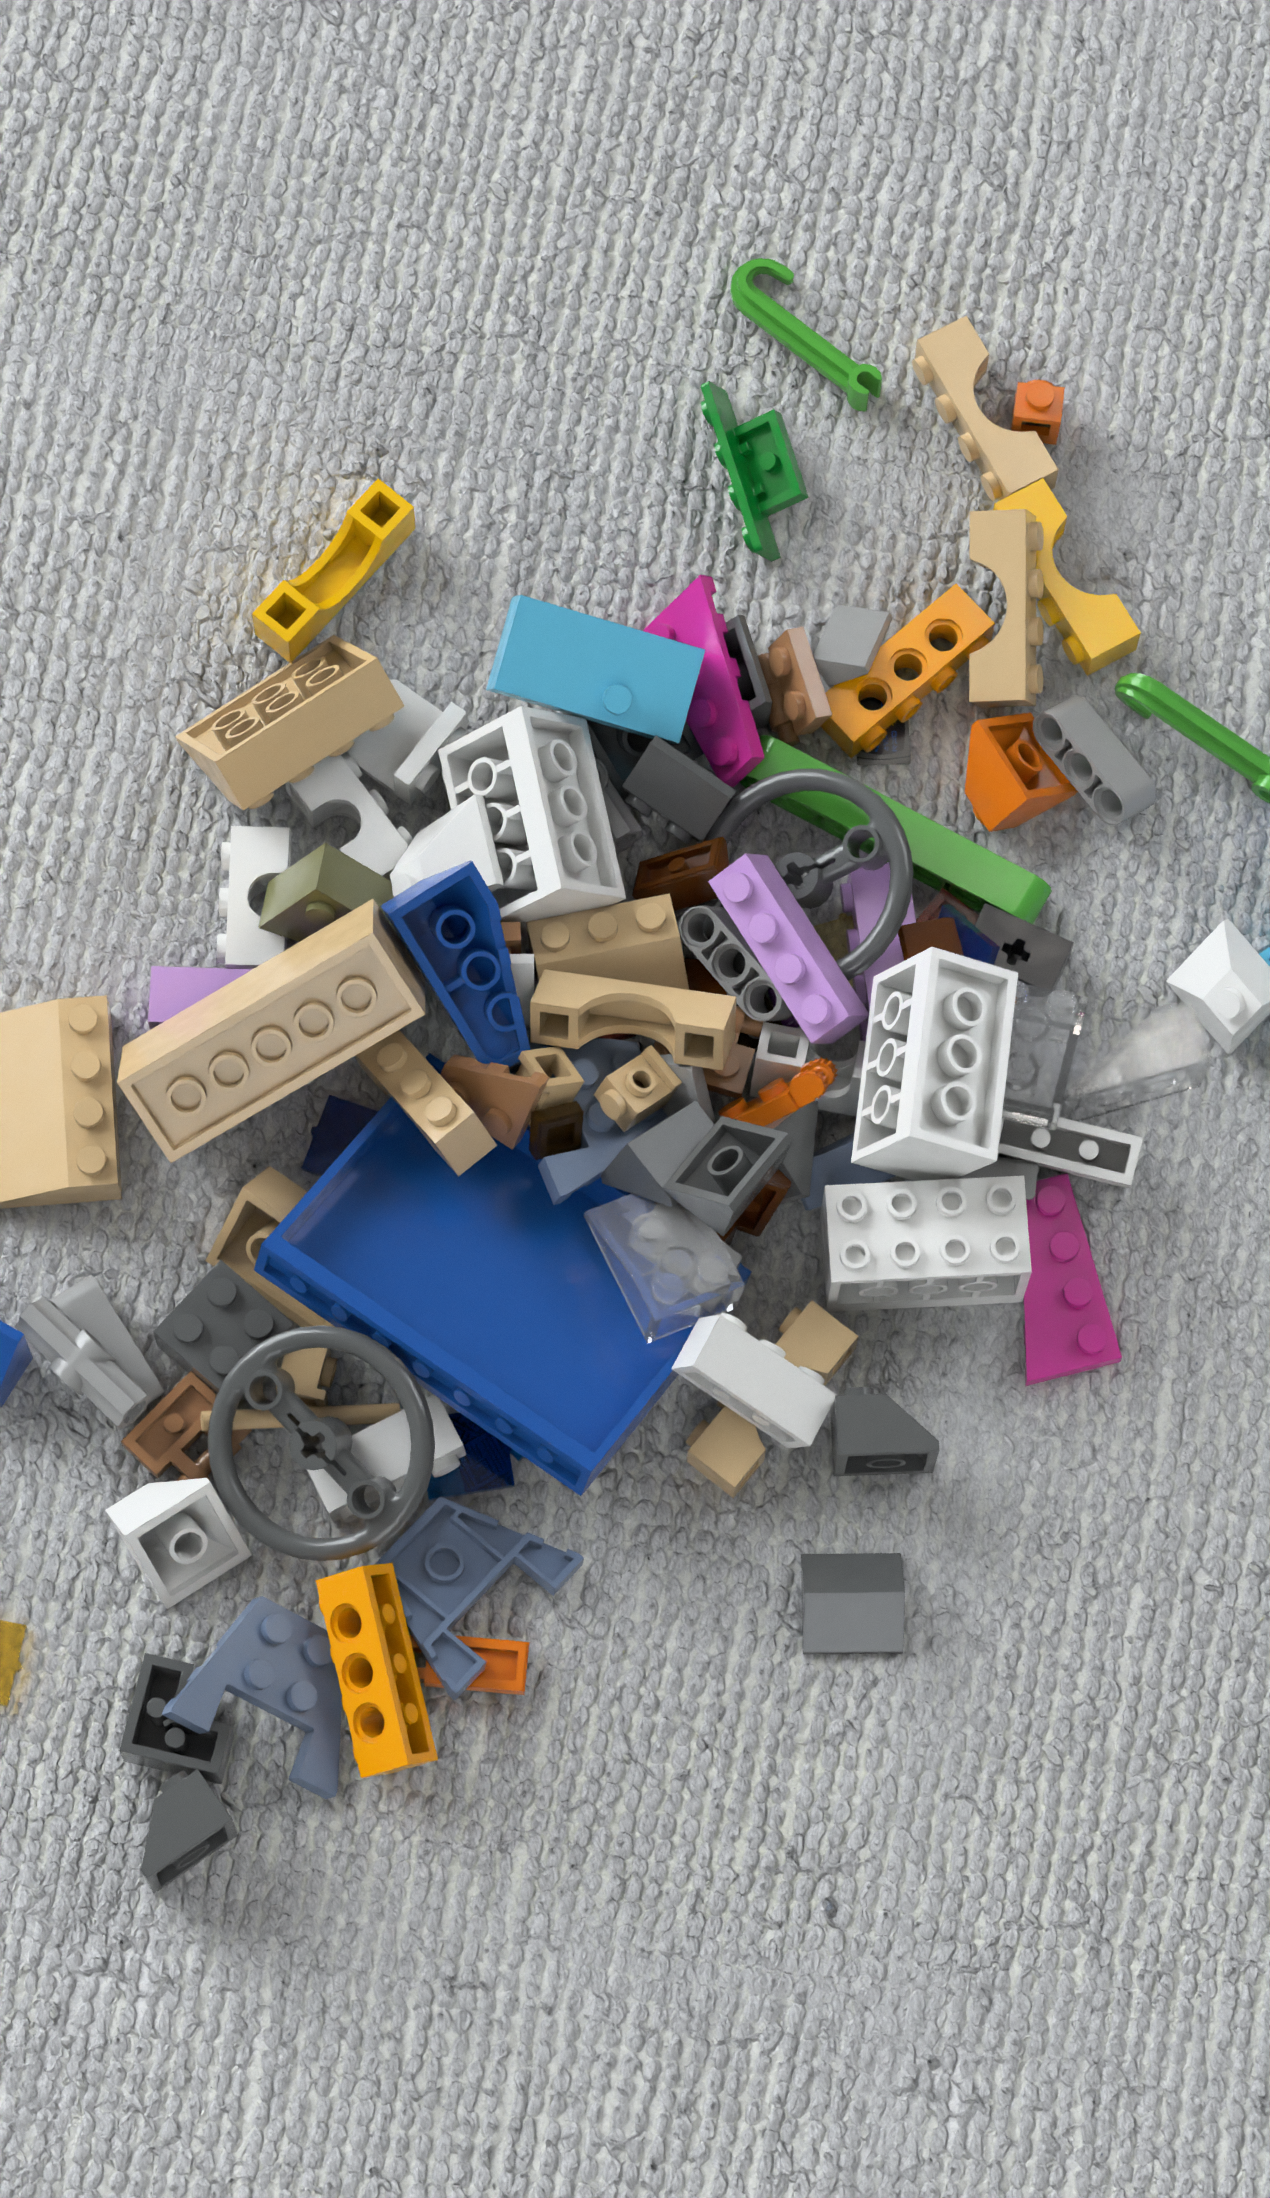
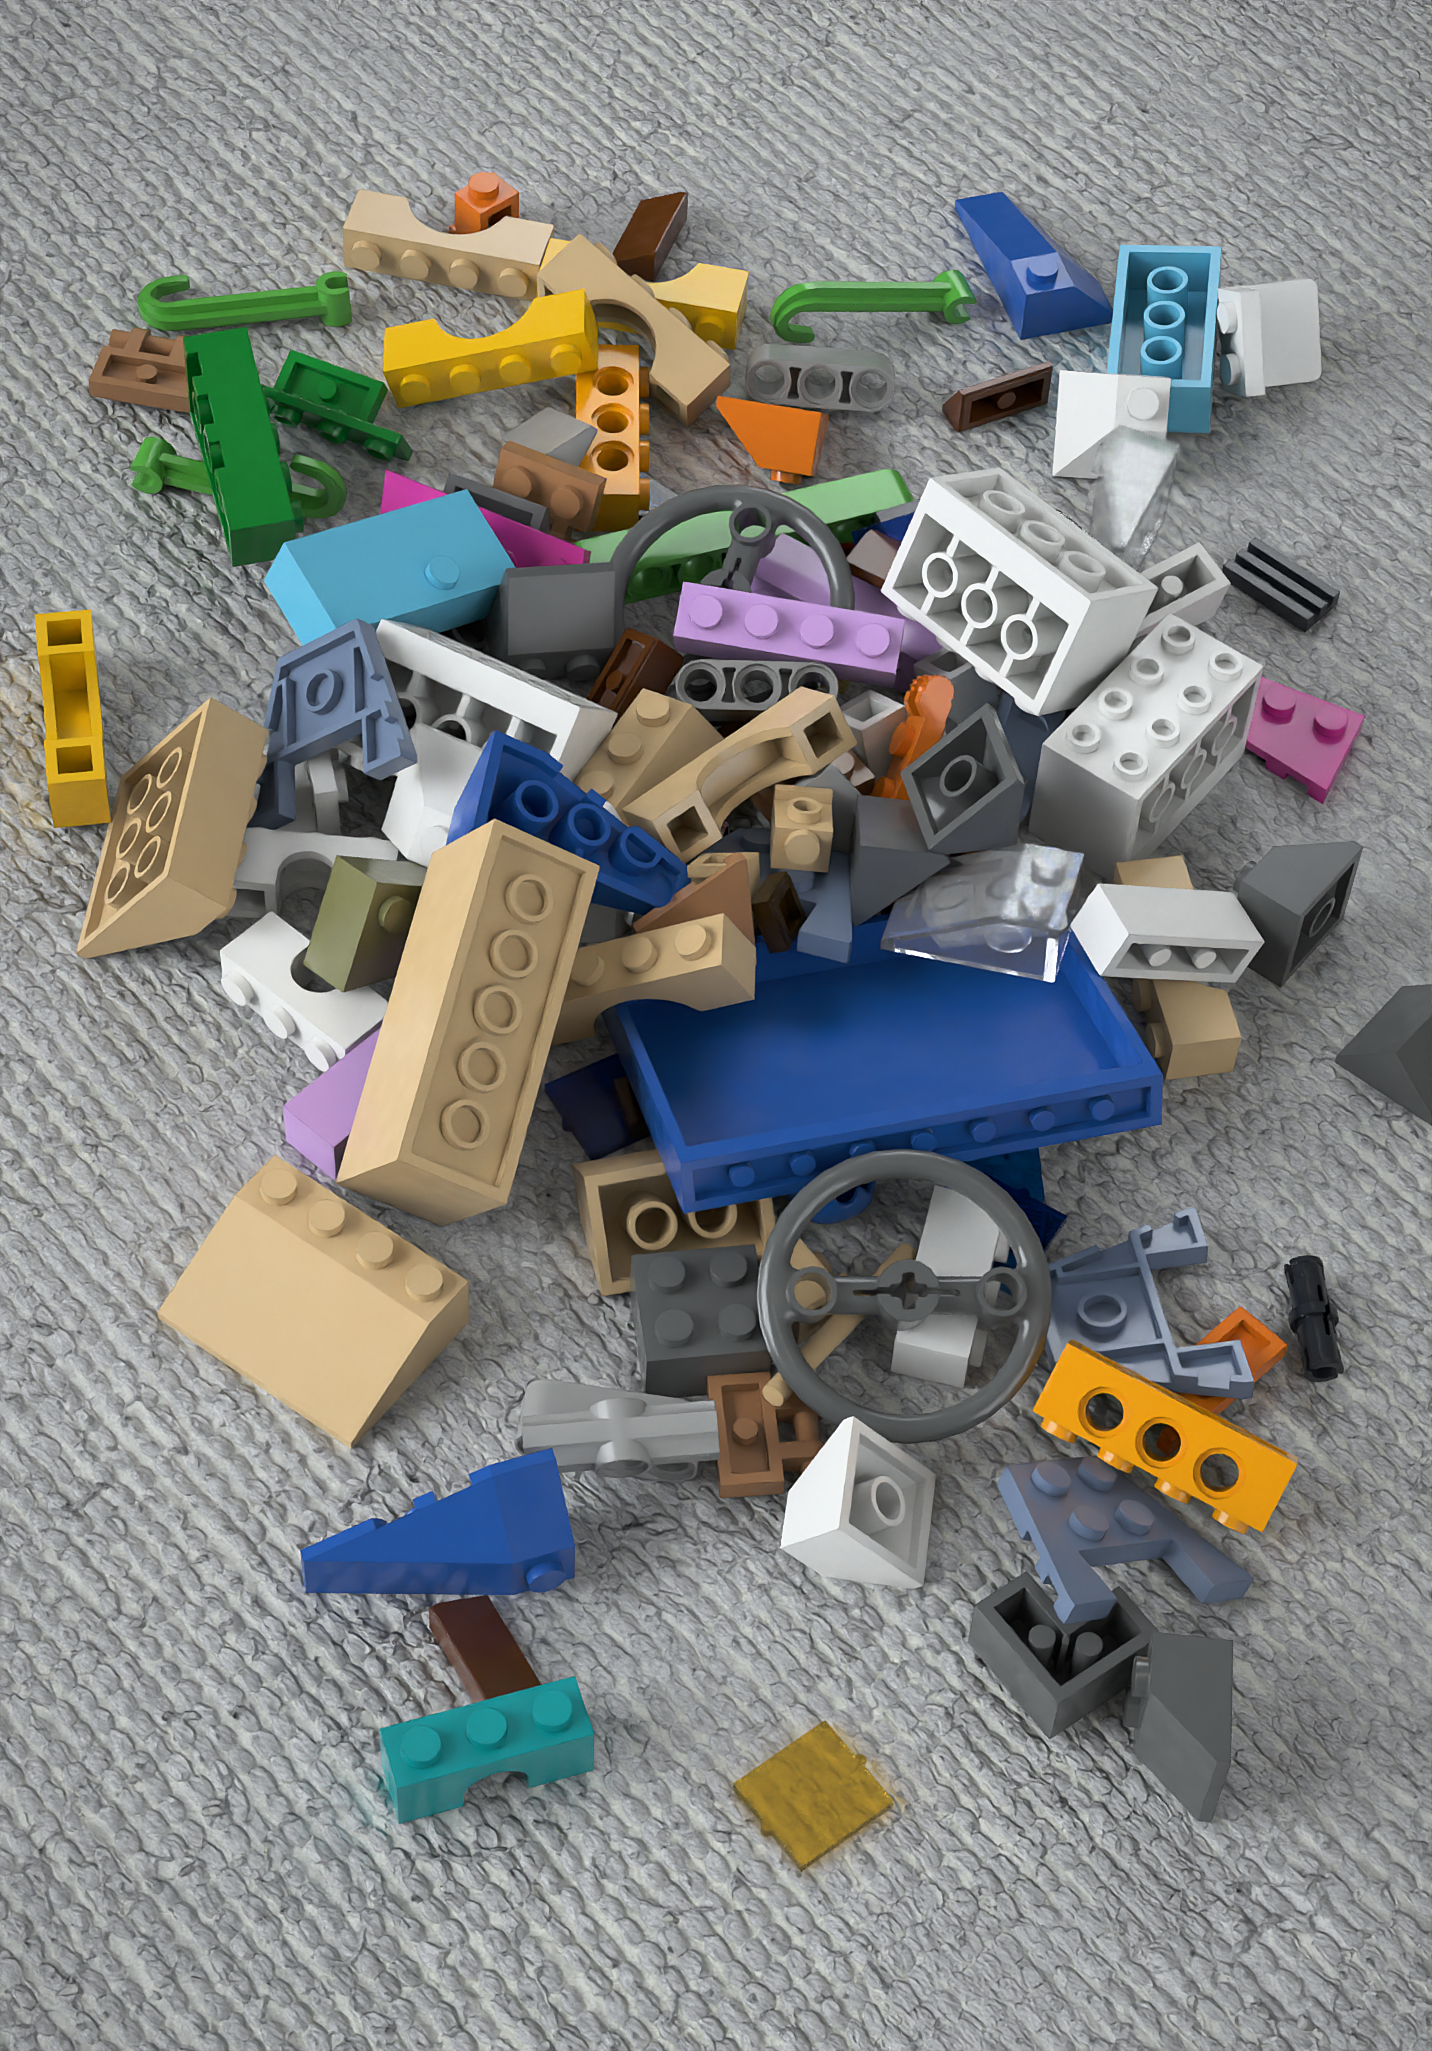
camera: 50 degrees left, 20 degrees down
(446, 729) = (323, 699): none -> sand blue wing
(564, 1692) = (1313, 1318): none -> black pin
(605, 420) = (160, 465): none -> bright green piece
(636, 470) = (239, 446): none -> green wedge
(674, 339) = (142, 370): none -> medium nougat plate
(931, 568) = (546, 343): none -> yellow arch
(1136, 530) = (651, 235): none -> reddish brown slope
(1201, 888) = (999, 397): none -> reddish brown slope
(1202, 1170) = (1285, 580): none -> black tile

